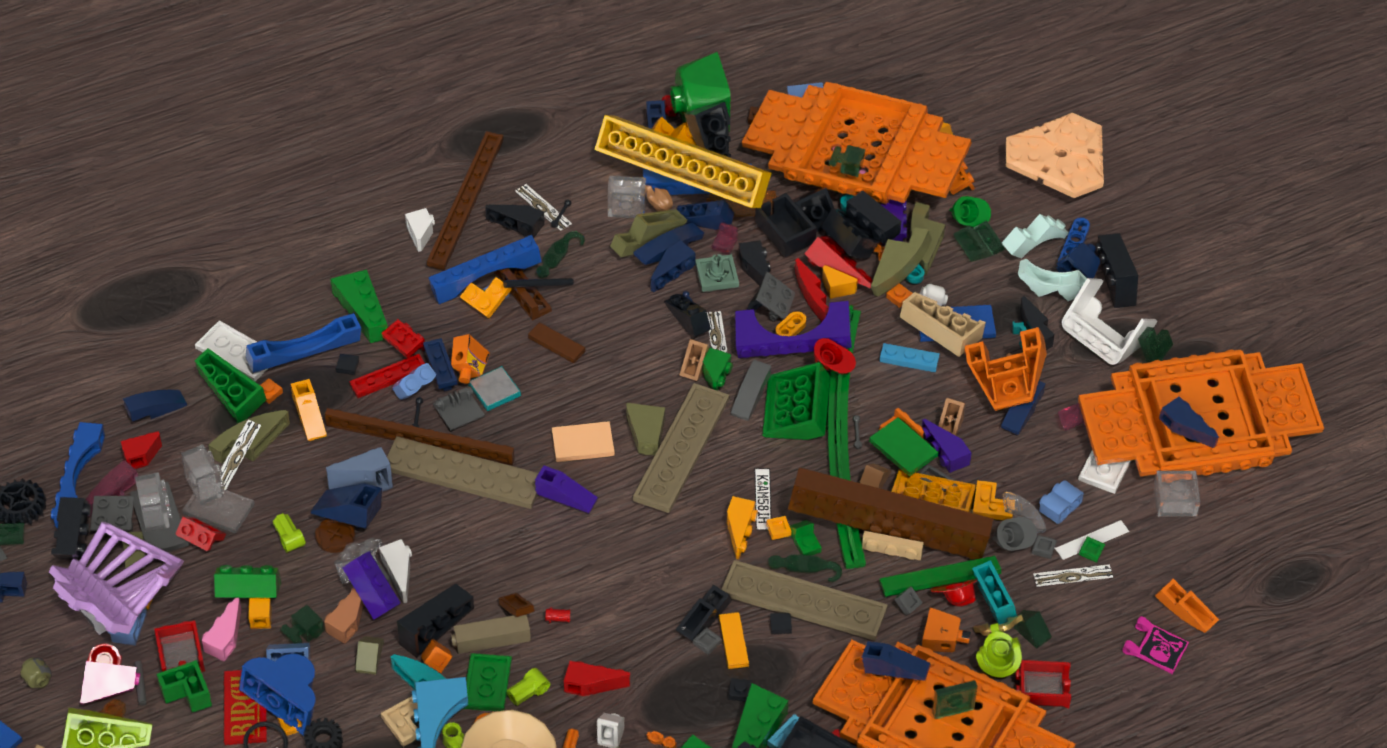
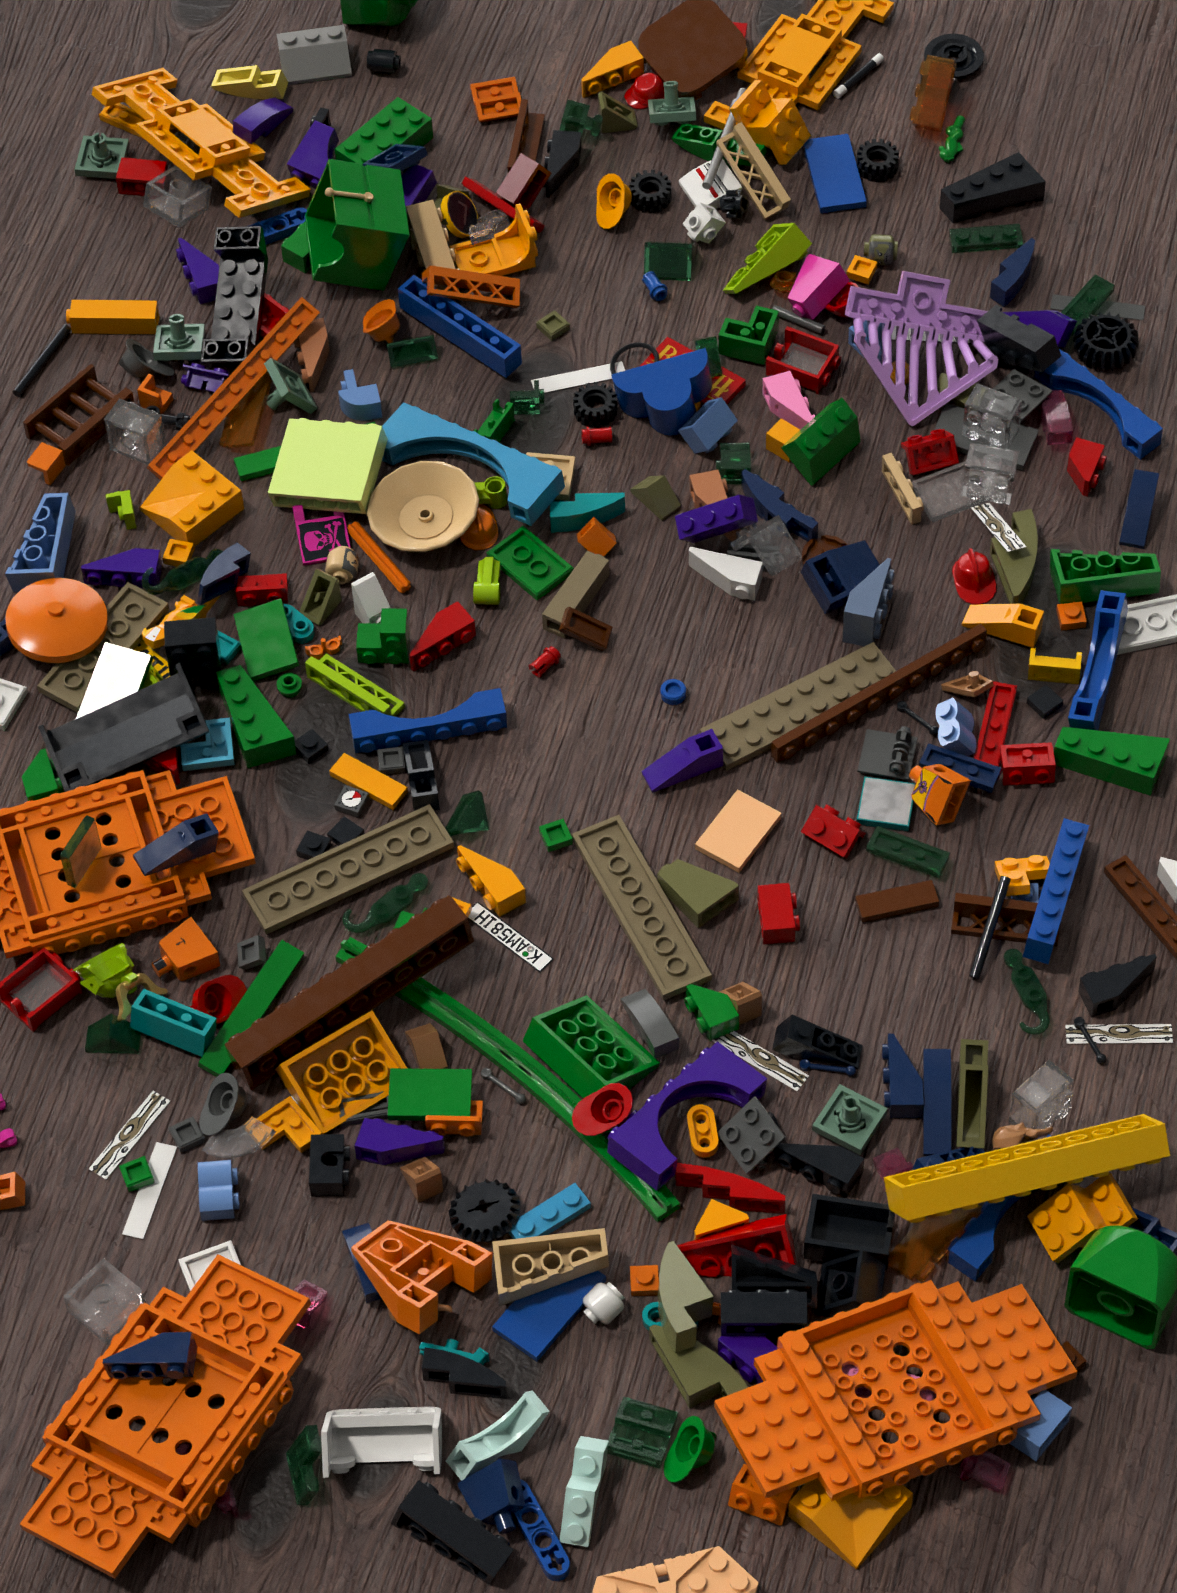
camera: 135 degrees right, 5 degrees up
(34, 541) = (1050, 321): none -> dark purple slope
(63, 674) = (861, 269): none -> light orange plate
(224, 703) = (711, 346): none -> clear green slope
(245, 527) = (902, 488): none -> tan plate
(281, 454) = (974, 578): none -> red piece
(290, 536) = (853, 516): lime piece -> none
(317, 371) = (1054, 668): none -> yellow hinge
(323, 581) = (770, 503): none -> dark blue slope
(353, 722) = (596, 435): none -> red pin
(371, 401) = (969, 685): none -> medium nougat piece
(433, 619) = (637, 555): black wedge -> none
(514, 539) = (673, 691): none -> blue tile
(520, 355) = (908, 852): none -> clear green plate
(538, 396) = (832, 831): none -> red bracket
(623, 383) = (776, 913): none -> red brick
(626, 700) = (384, 641): none -> green brick
(631, 617) = (377, 730): none -> blue arch
(676, 519) = (555, 835): none -> green plate
(682, 695) = (351, 692): none -> lime fence
(708, 572) = (468, 816): none -> clear green slope
(709, 739) = (292, 689): none -> green plate
(710, 127) = (1046, 1235): black wedge -> none
(756, 638) = (351, 801): none -> tile
(806, 632) = (313, 845): none -> black plate
(851, 160) = (863, 1344): clear green brick -> none
(934, 395) = (476, 1226): none -> black gear
(993, 463) = (325, 1151): none -> black brick

